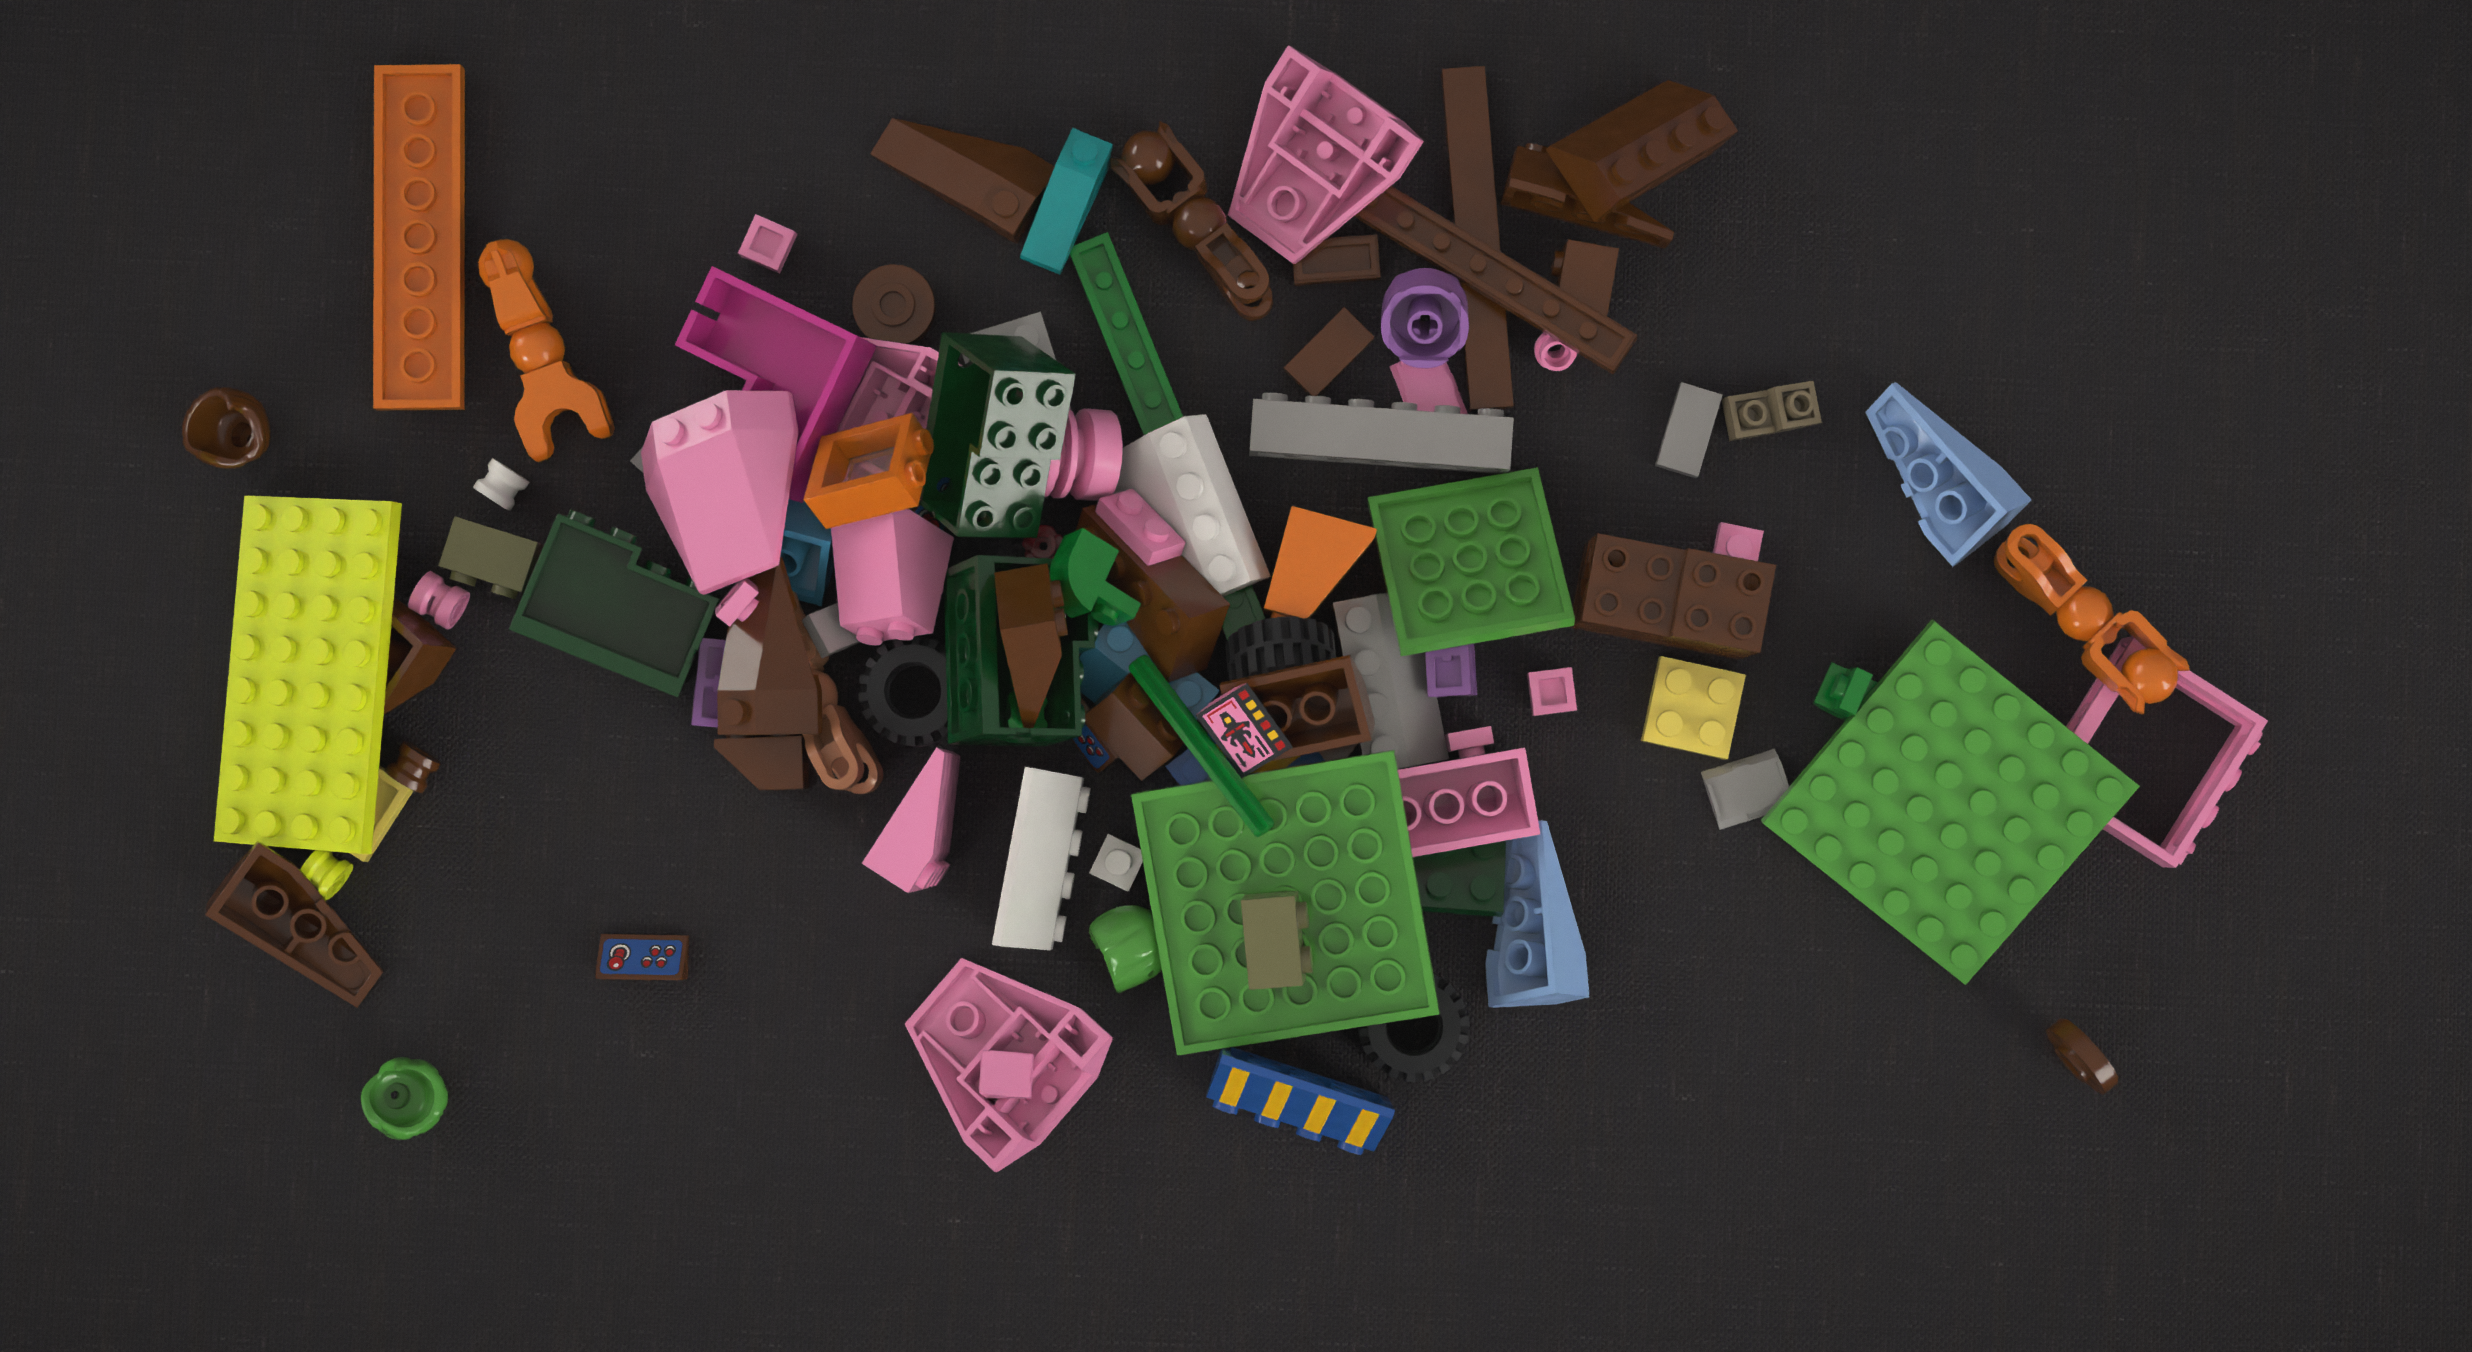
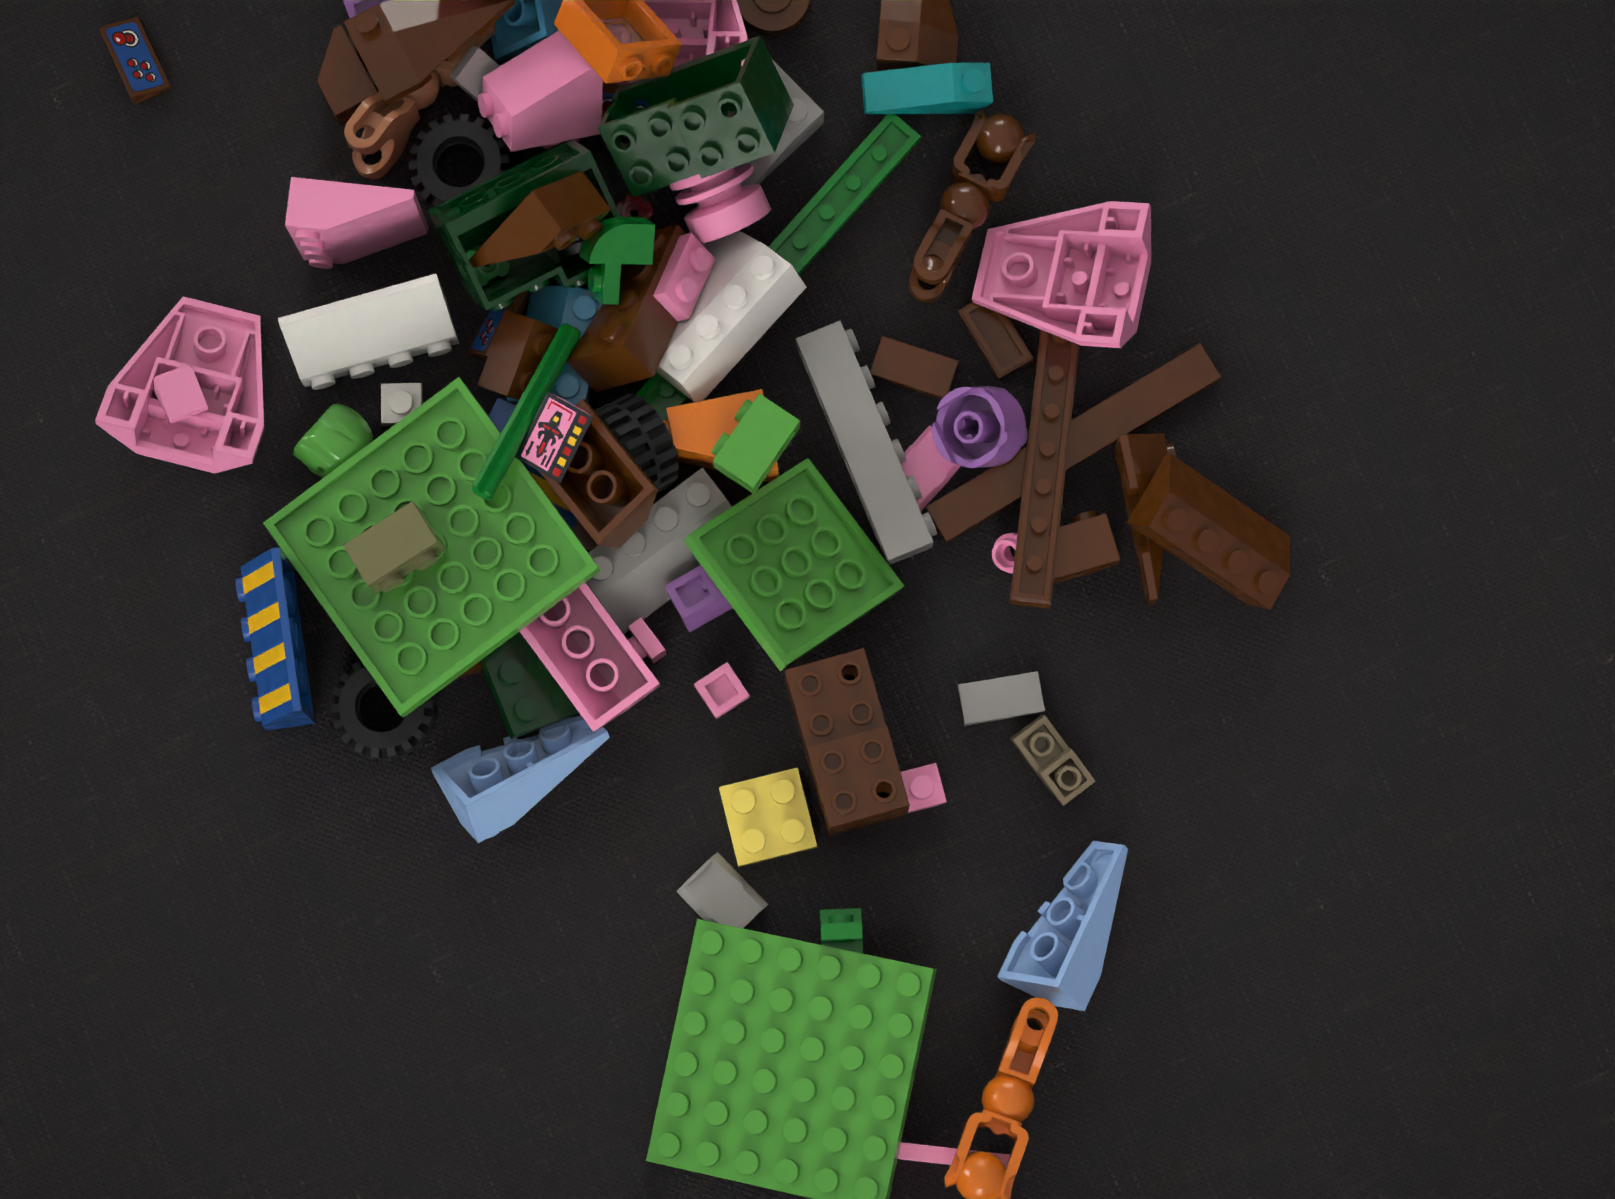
camera: 70 degrees right, 5 degrees down
(1346, 538) = (755, 442): none -> bright green brick

